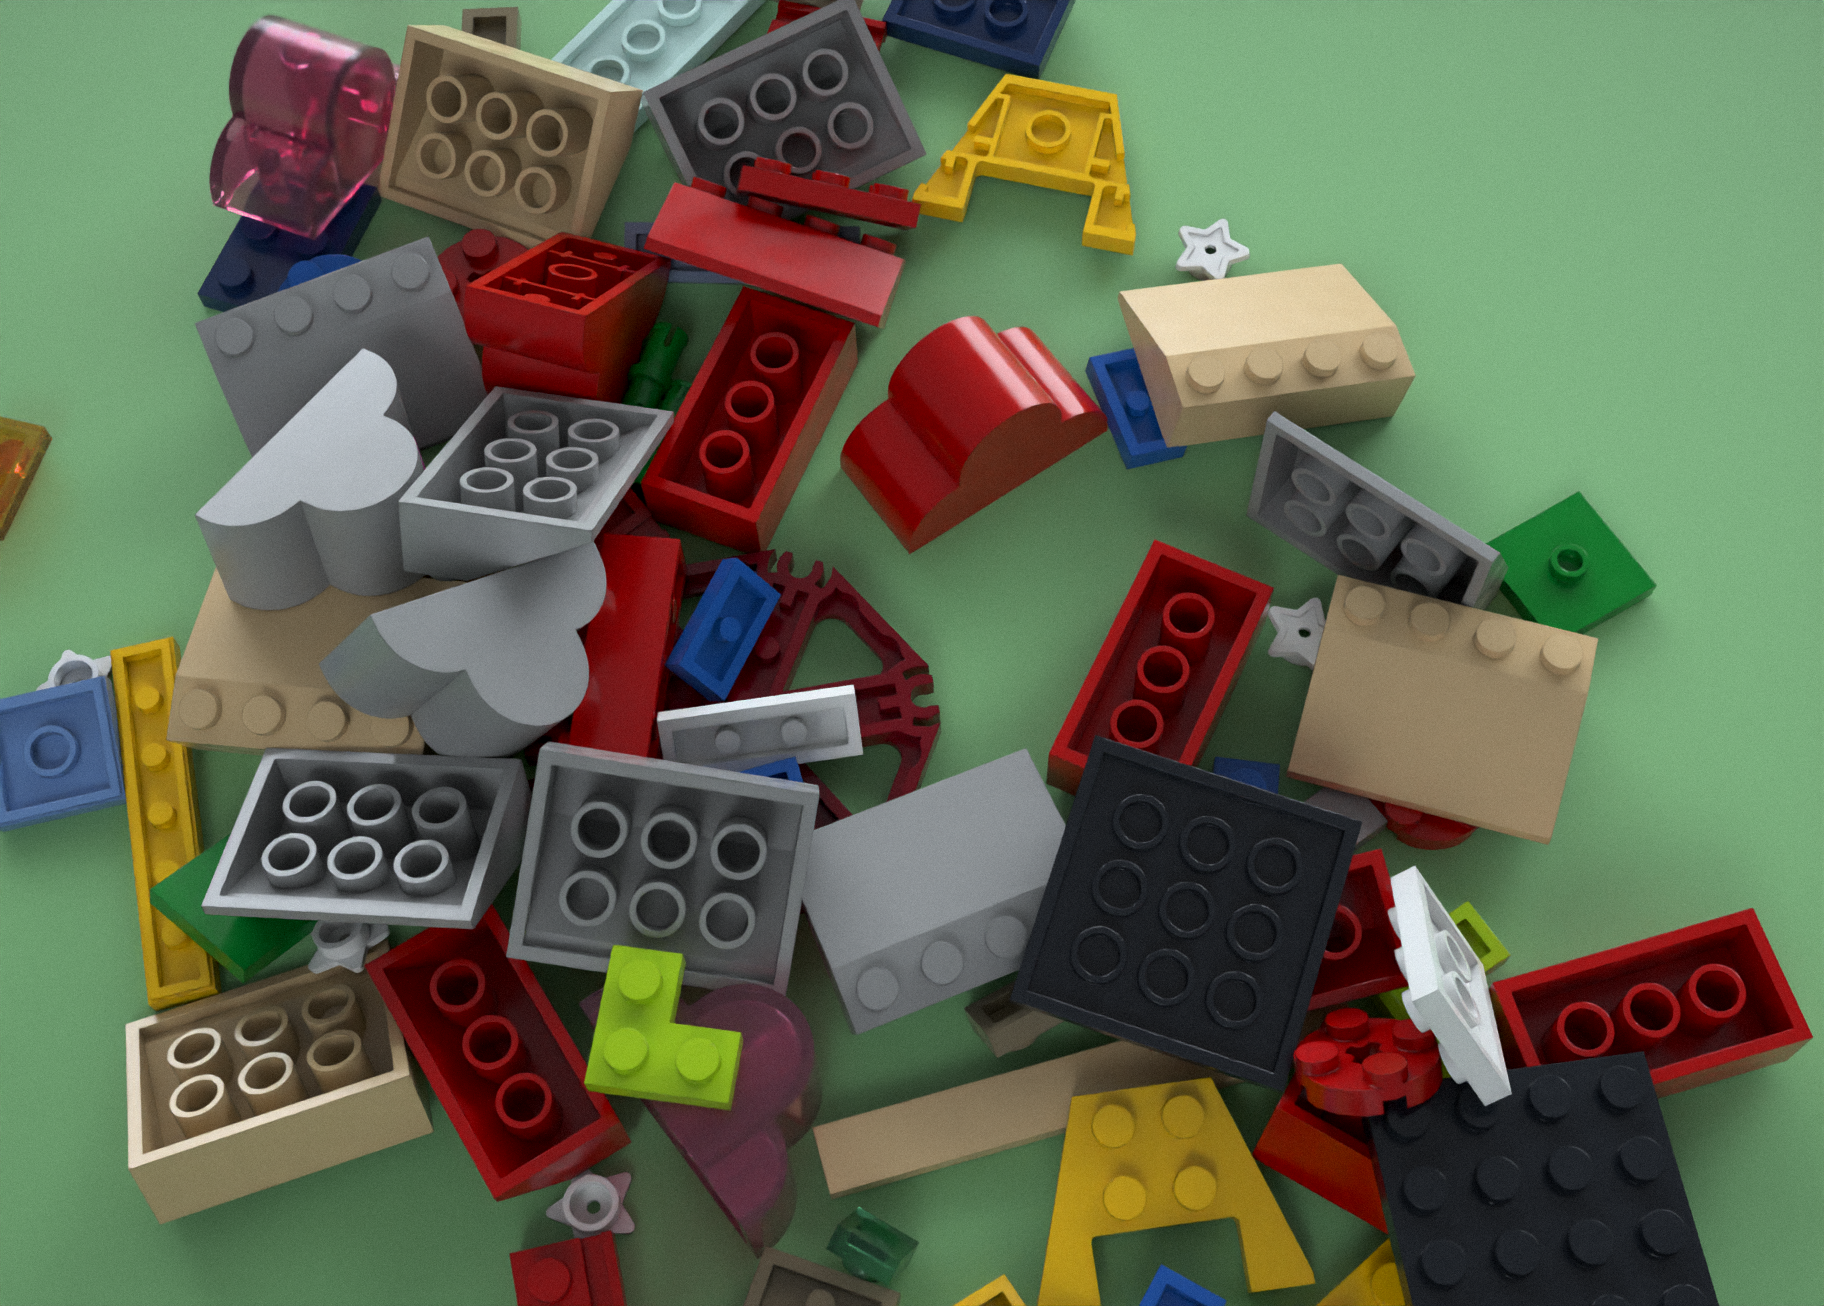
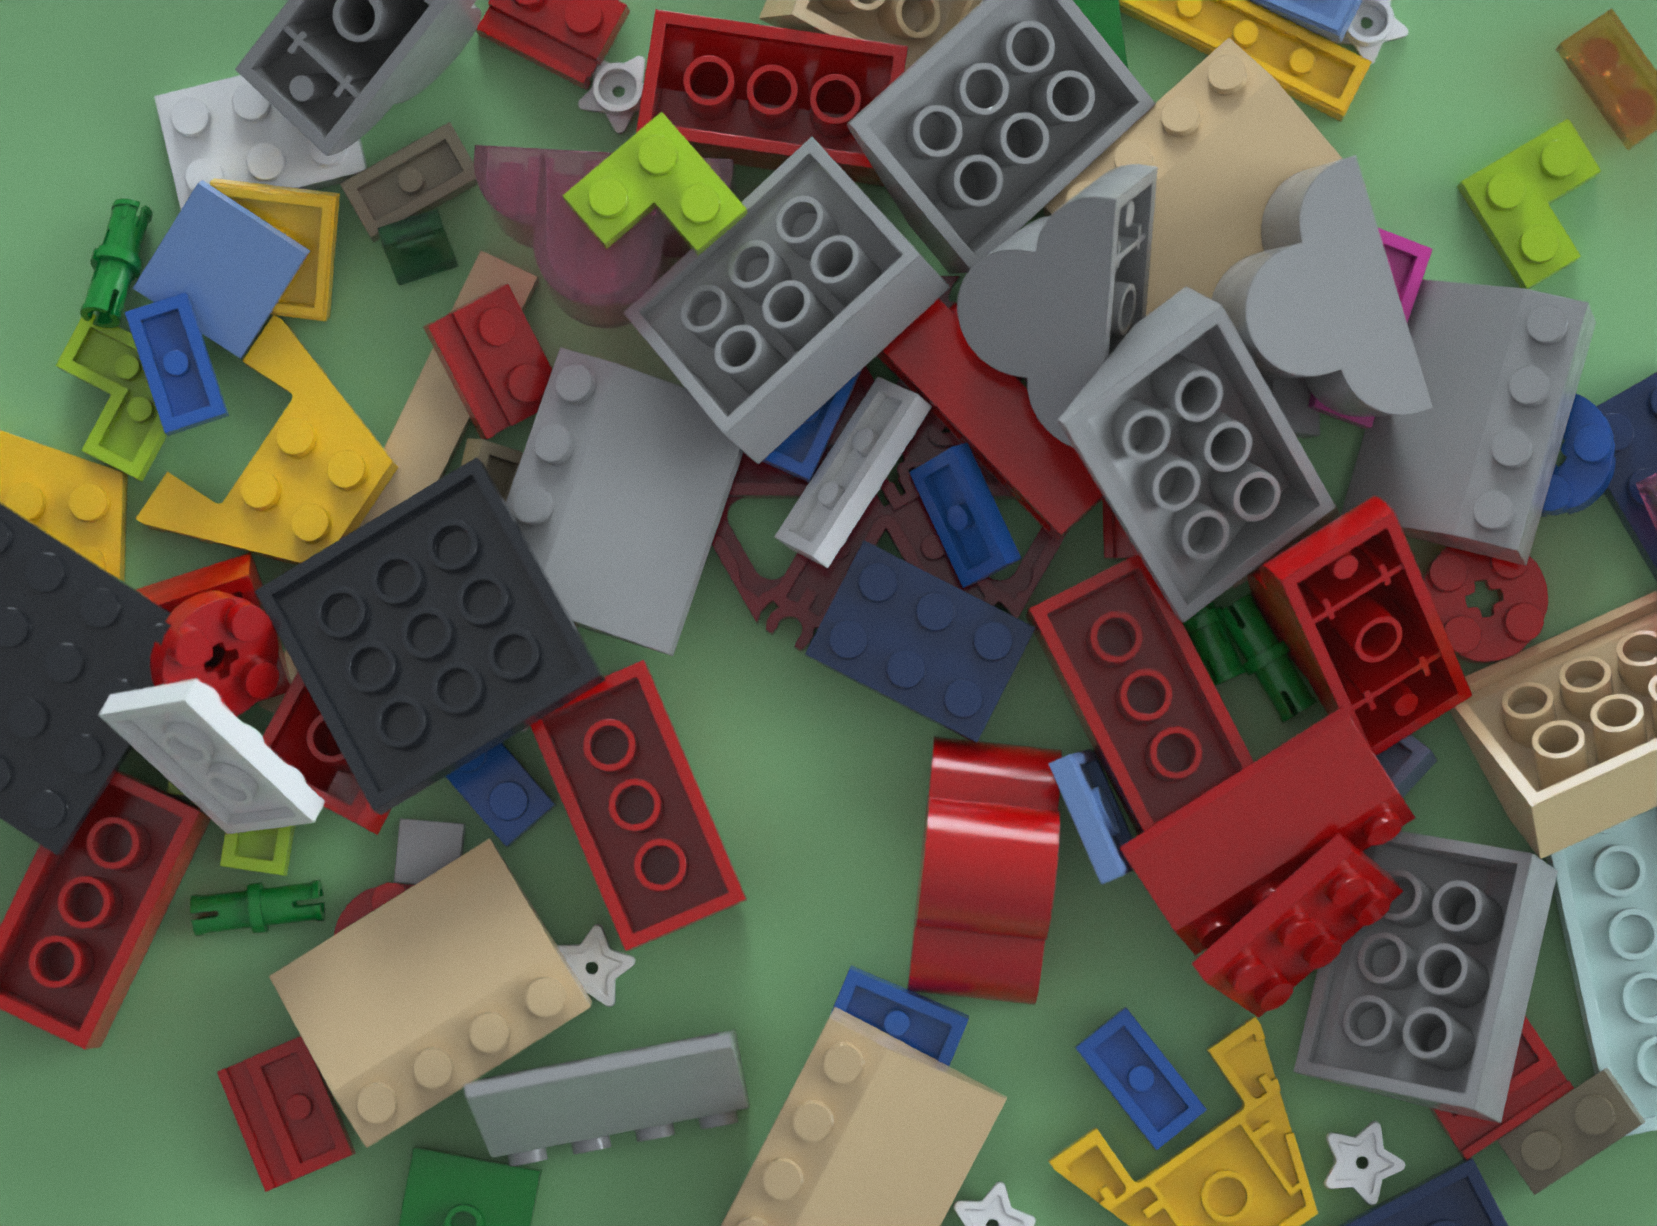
camera: 130 degrees right, 20 degrees up
(149, 484) = (1515, 196): none -> lime plate
(850, 594) = (920, 641): none -> dark blue plate
(867, 376) = (1094, 812): none -> medium blue tile
(913, 1094) = (492, 360): none -> red plate
(947, 97) = (1345, 1153): none -> white plate
(1021, 239) = (1140, 1078): none -> blue plate
(1509, 907) = (257, 907): none -> green pin
(1628, 752) = (285, 1113): none -> red plate

